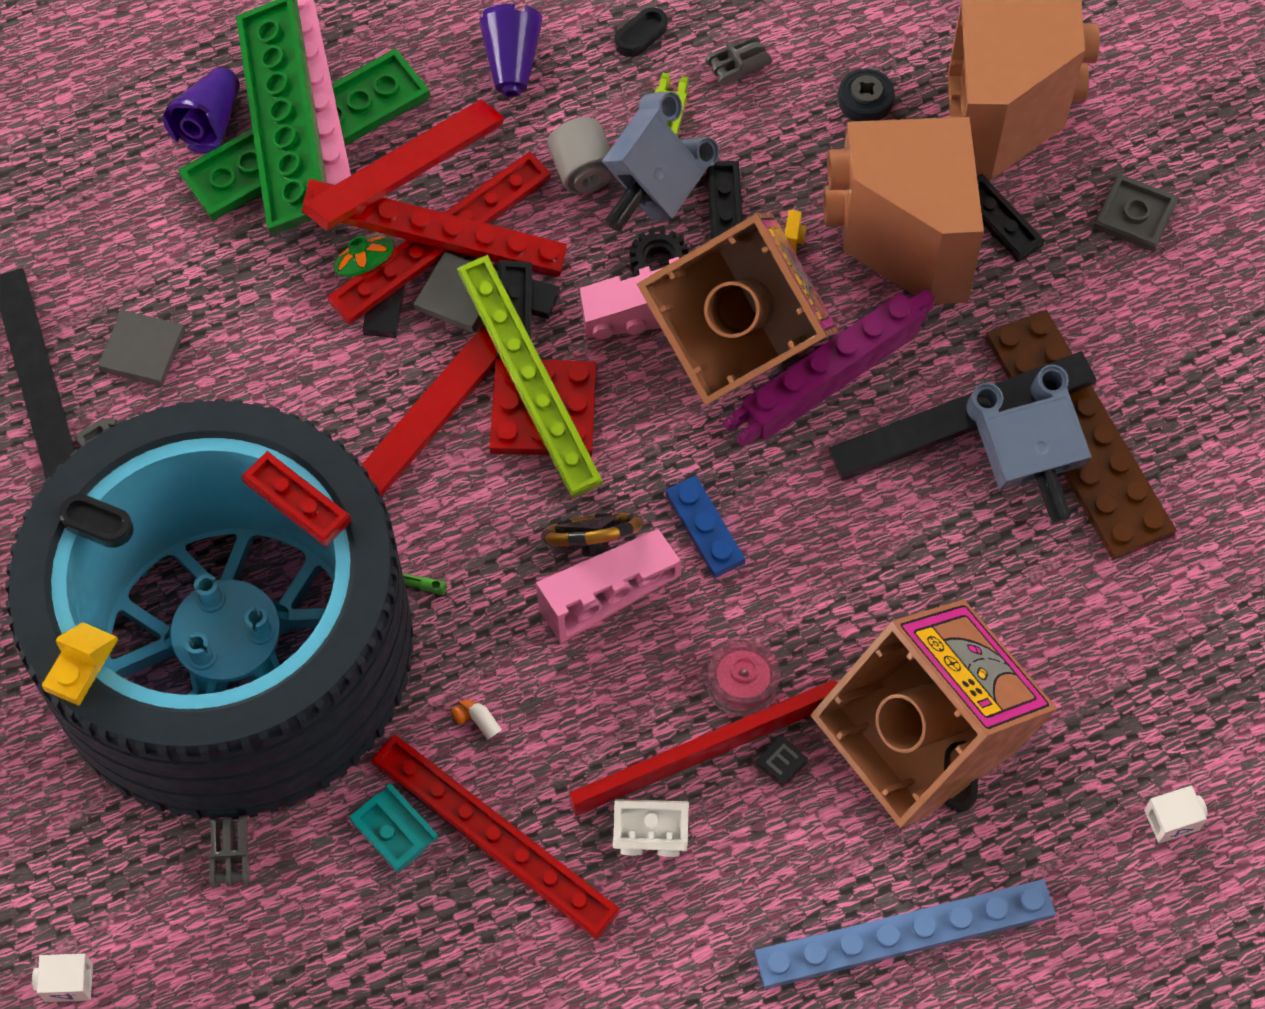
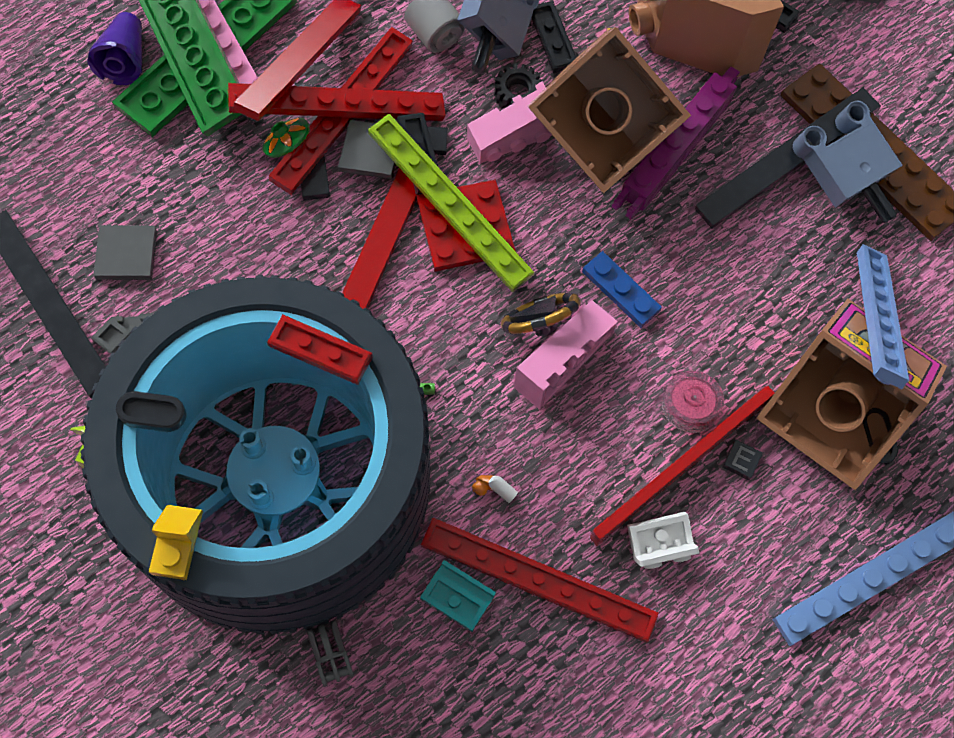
camera: 20 degrees left, 5 degrees up
(985, 626) = (882, 318): none -> medium blue plate

